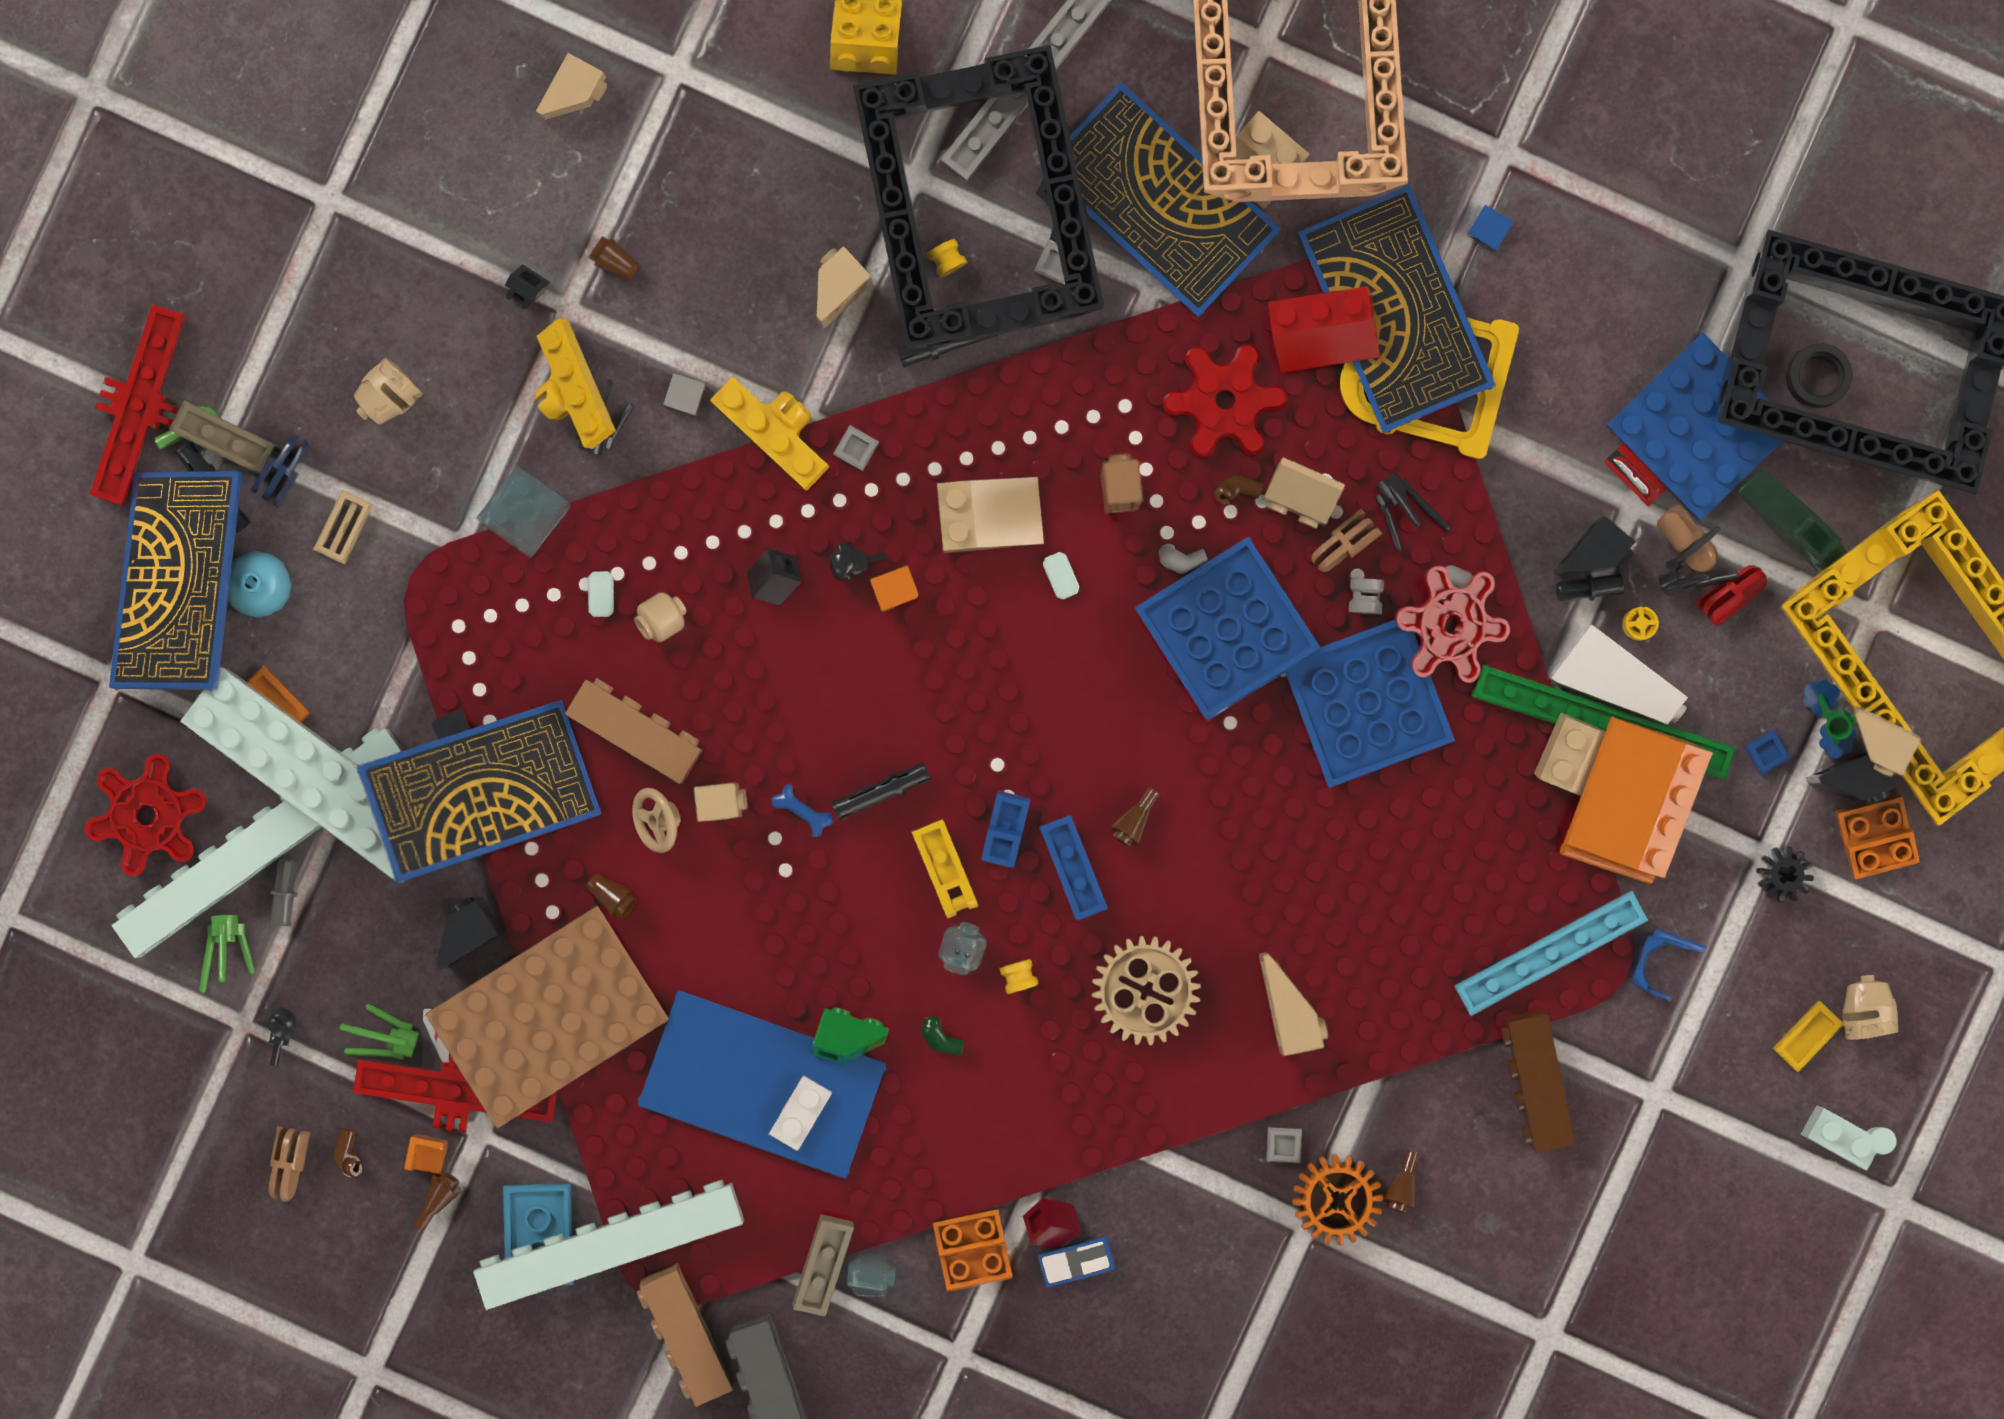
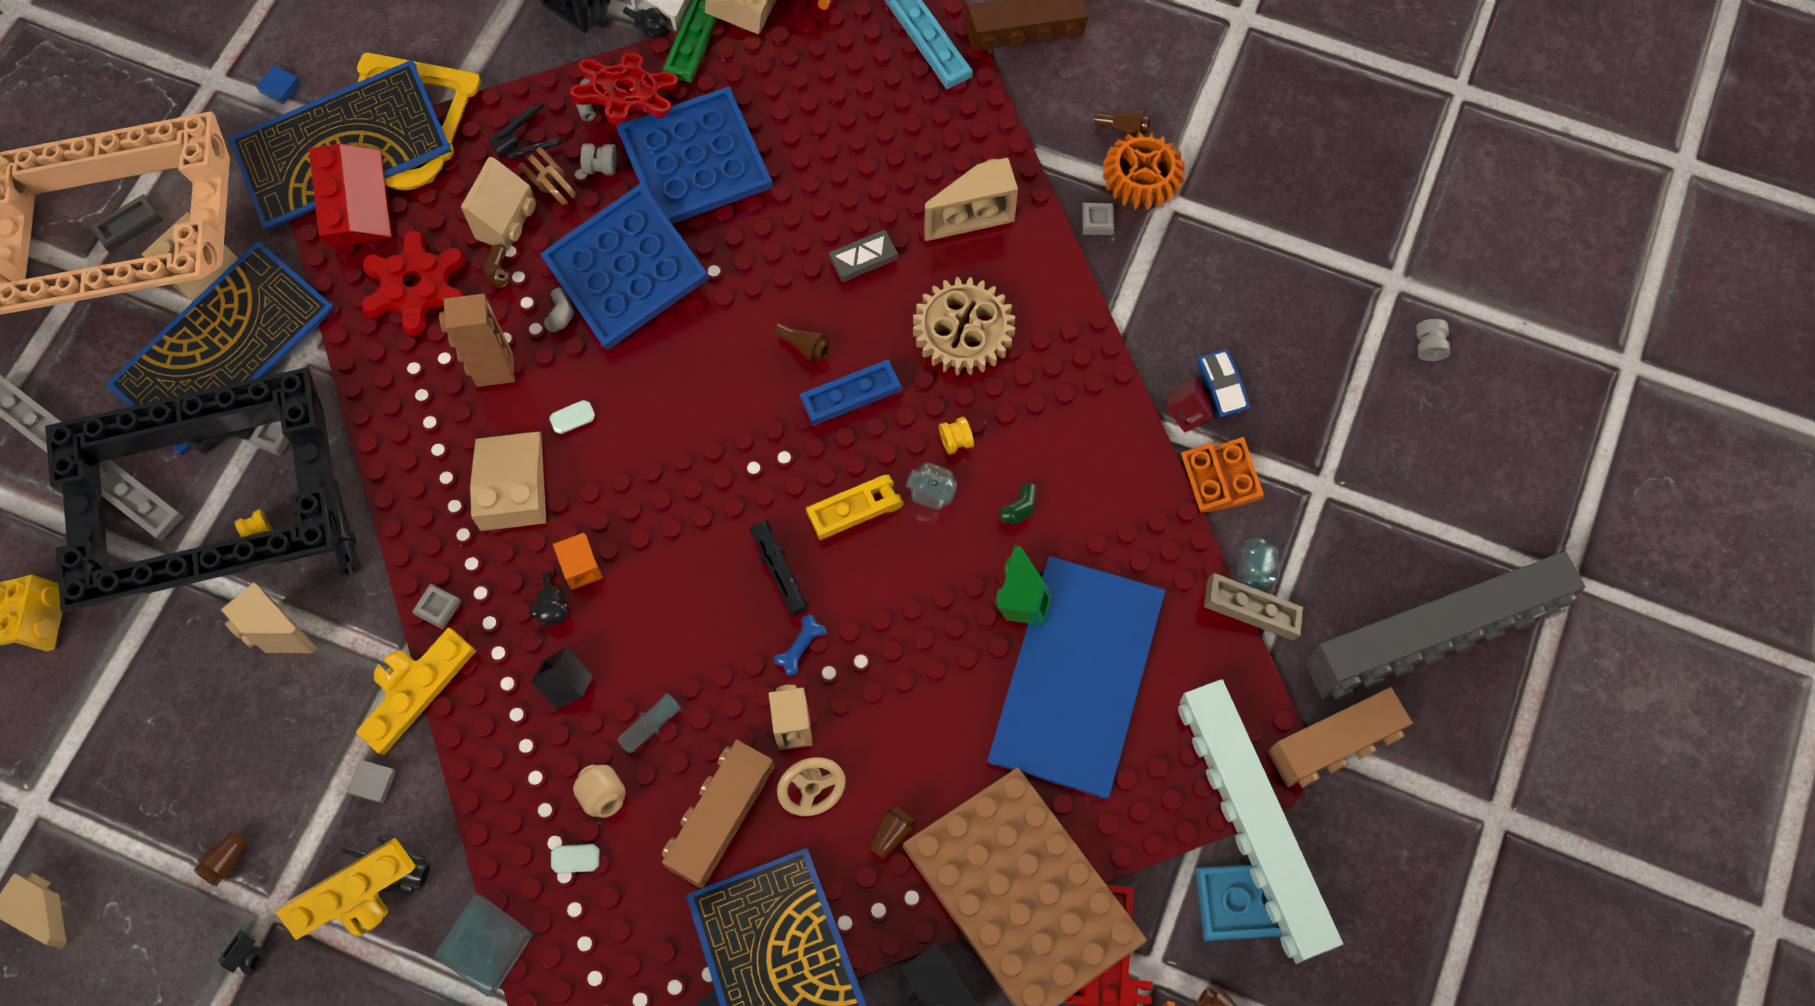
camera: 90 degrees left, 20 degrees down
(726, 662) = (648, 723): none -> clear light blue axle
(800, 1113) = (1103, 633): white plate -> none
(1005, 829) = (815, 456): blue slope -> none
(1238, 885) = (863, 256): none -> dark grey tile
(1316, 78) = (126, 223): none -> dark grey tile
(1553, 650) = (650, 21): none -> black piece

